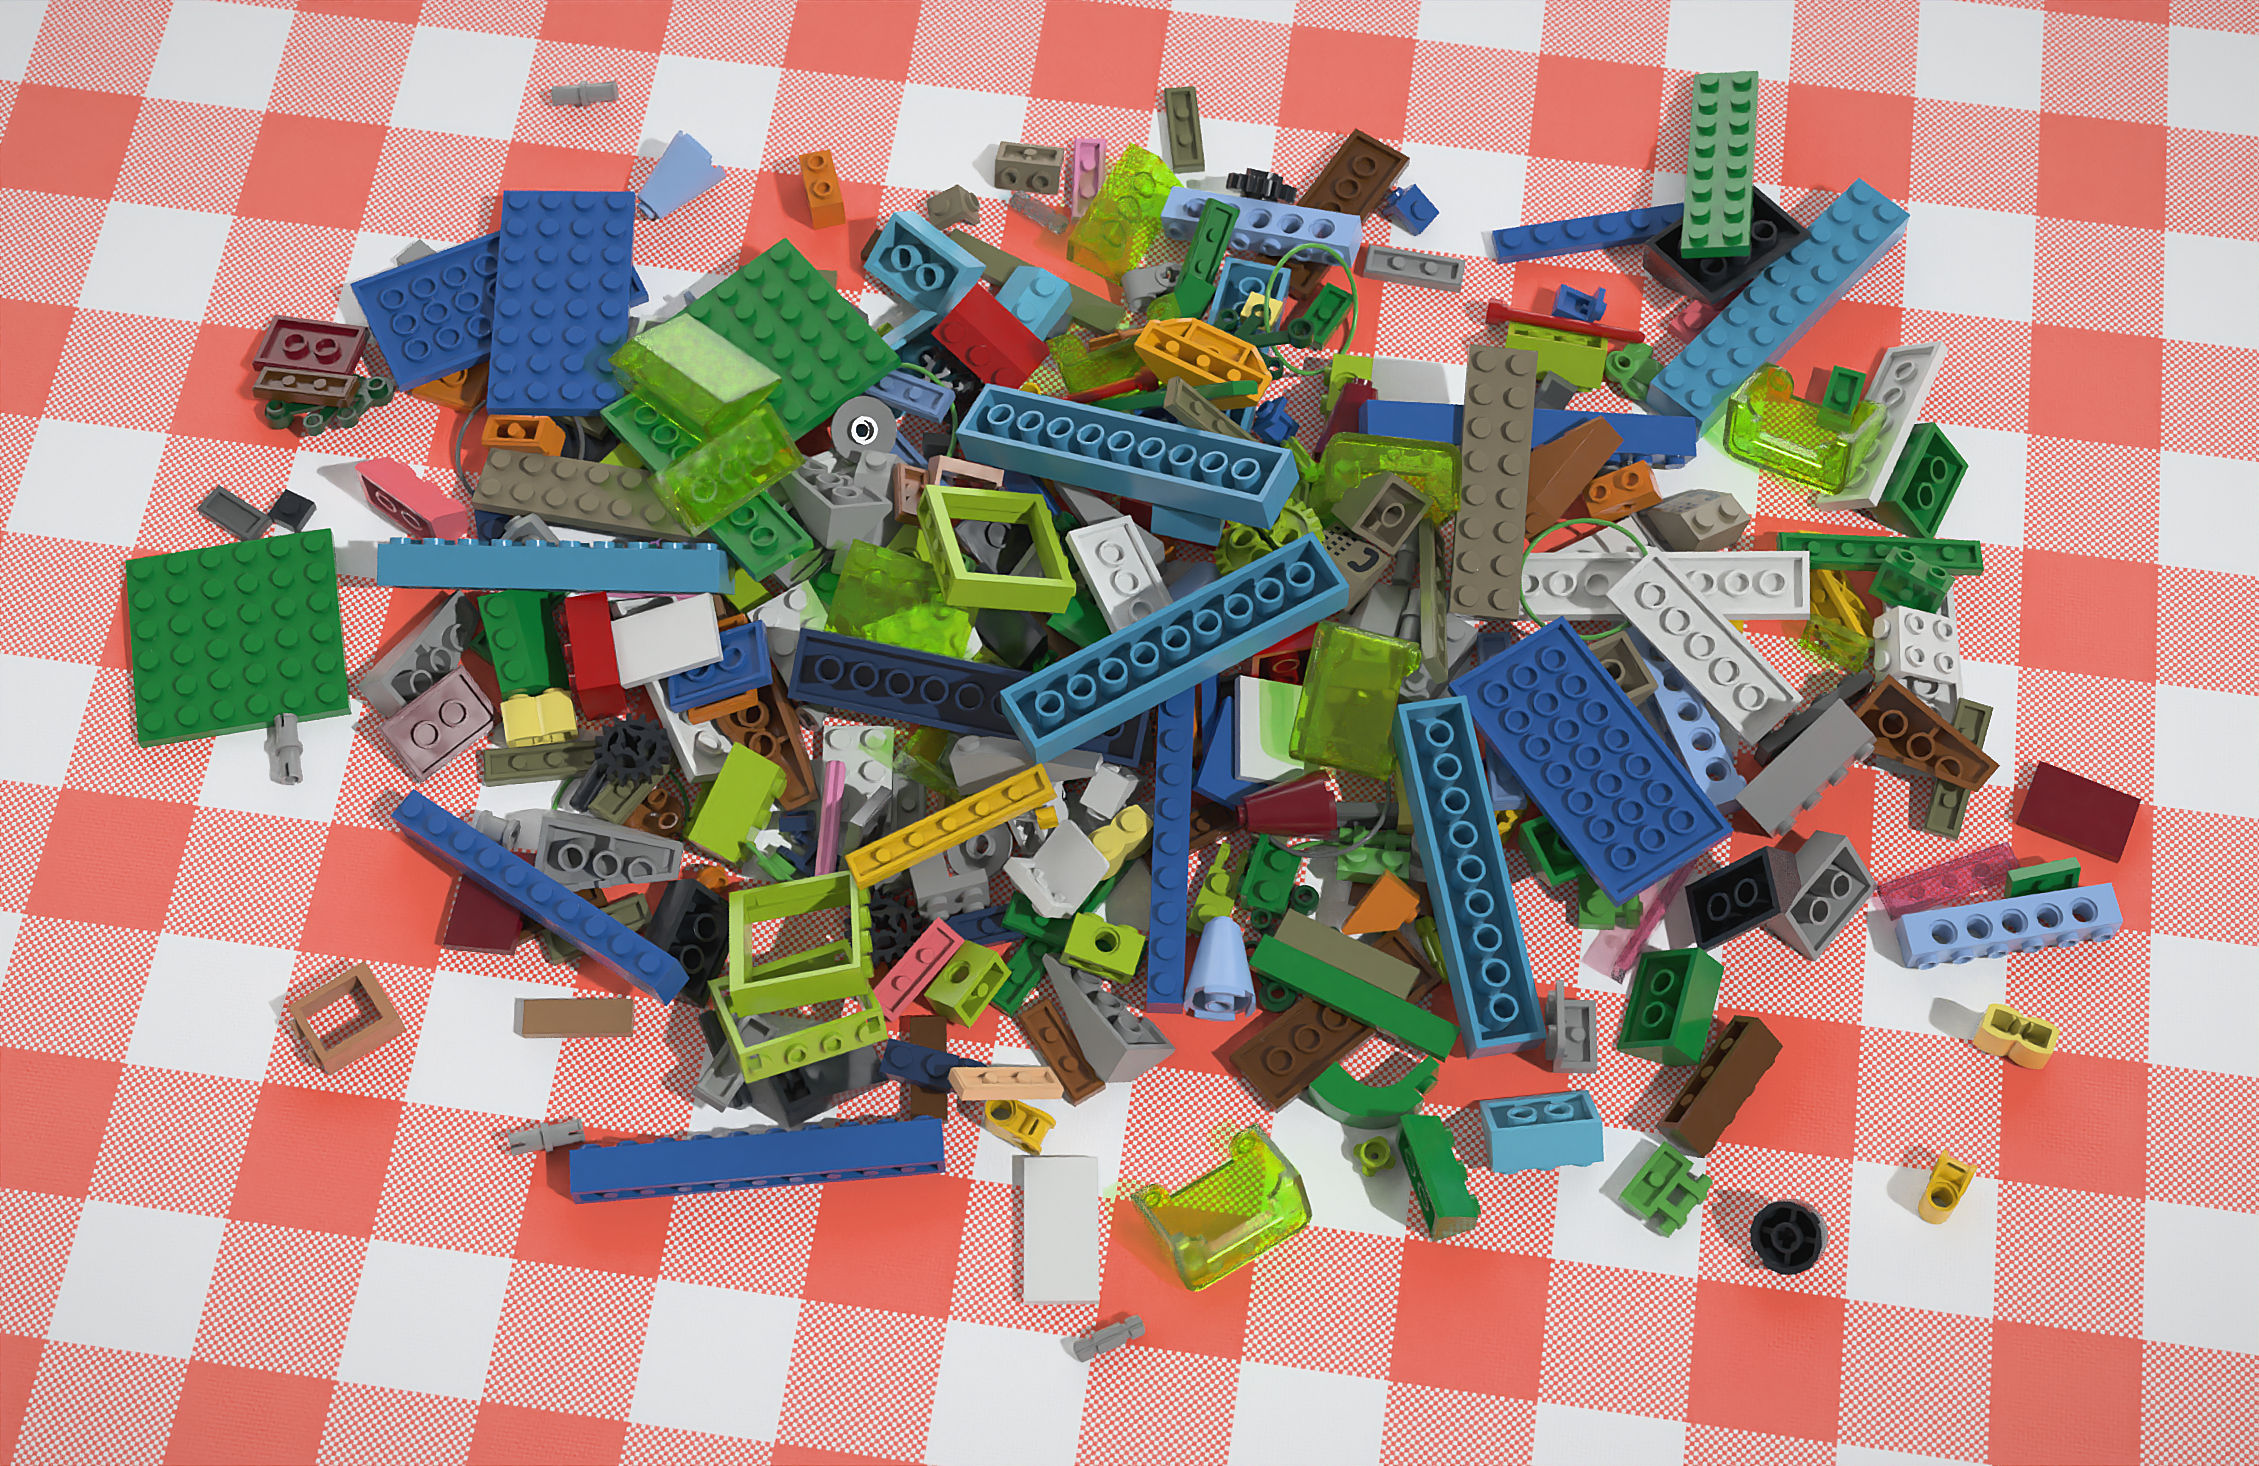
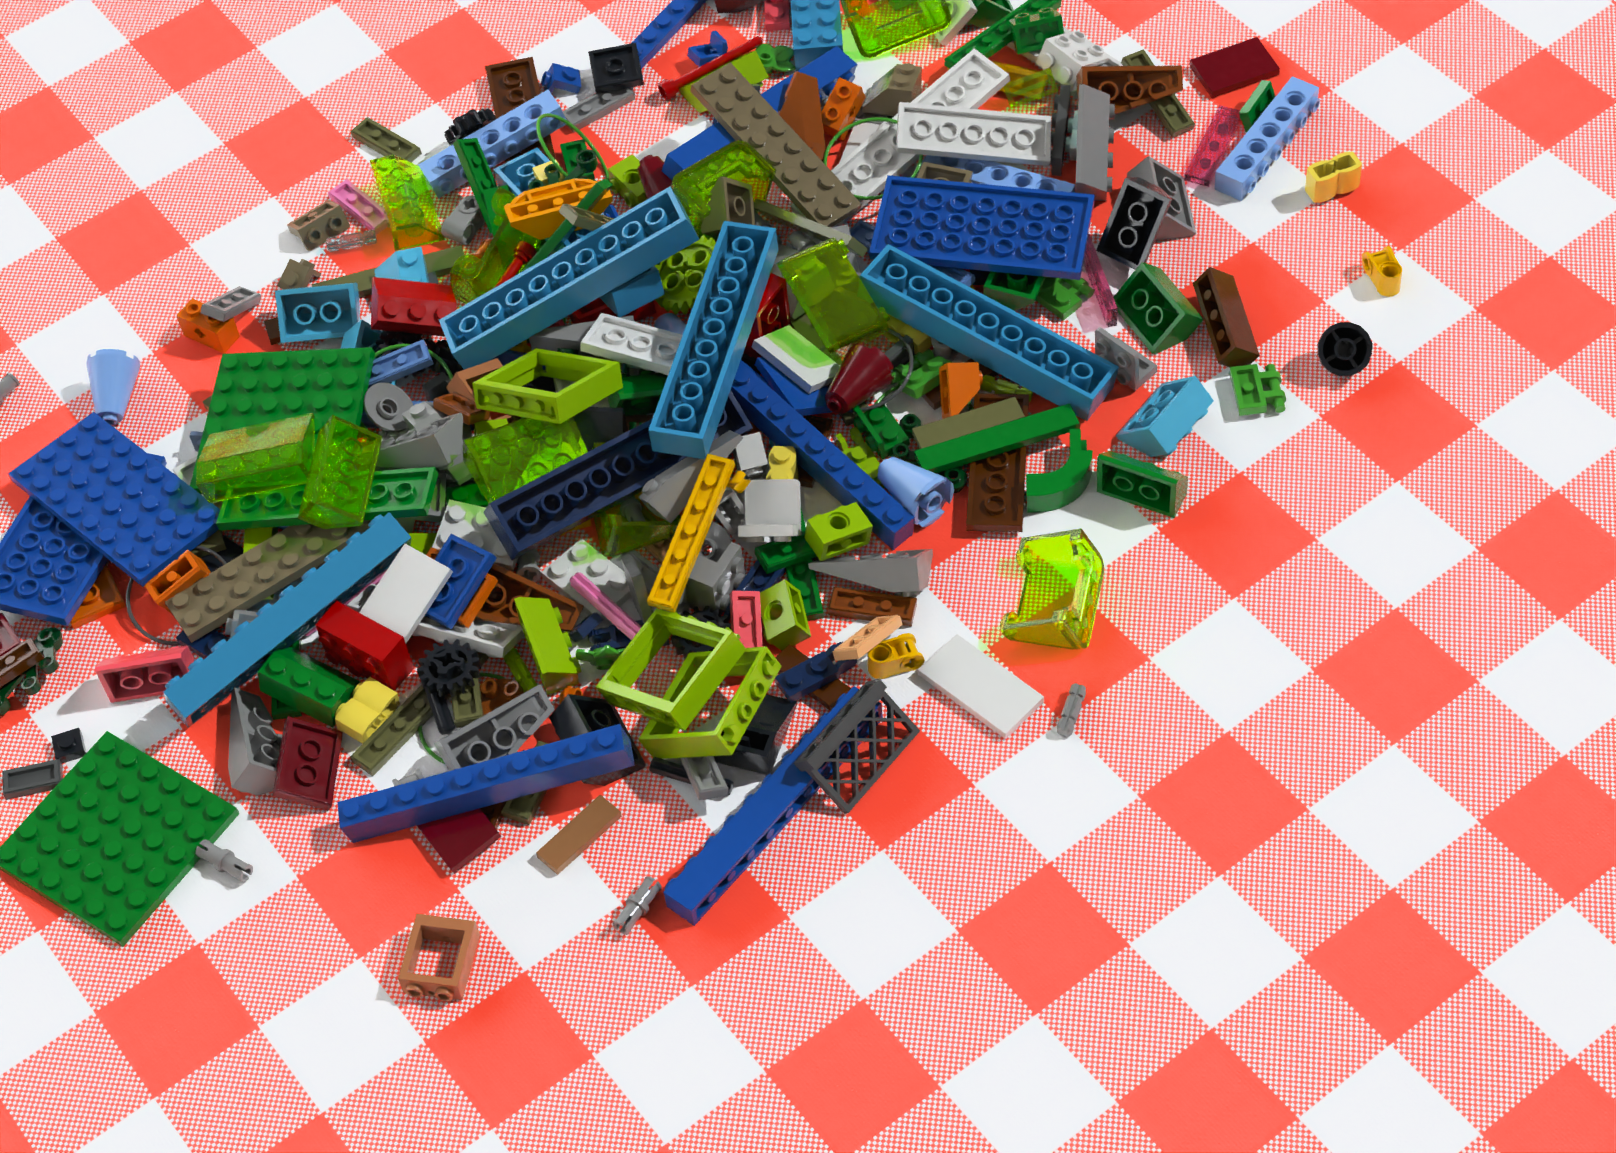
camera: 40 degrees left, 10 degrees down
(857, 186) = (231, 303): none -> light grey tile
(883, 1150) = (846, 723): none -> dark grey fence
(1376, 1145) = (1097, 498): lime plate -> none
(1470, 243) = (616, 68): none -> black tile

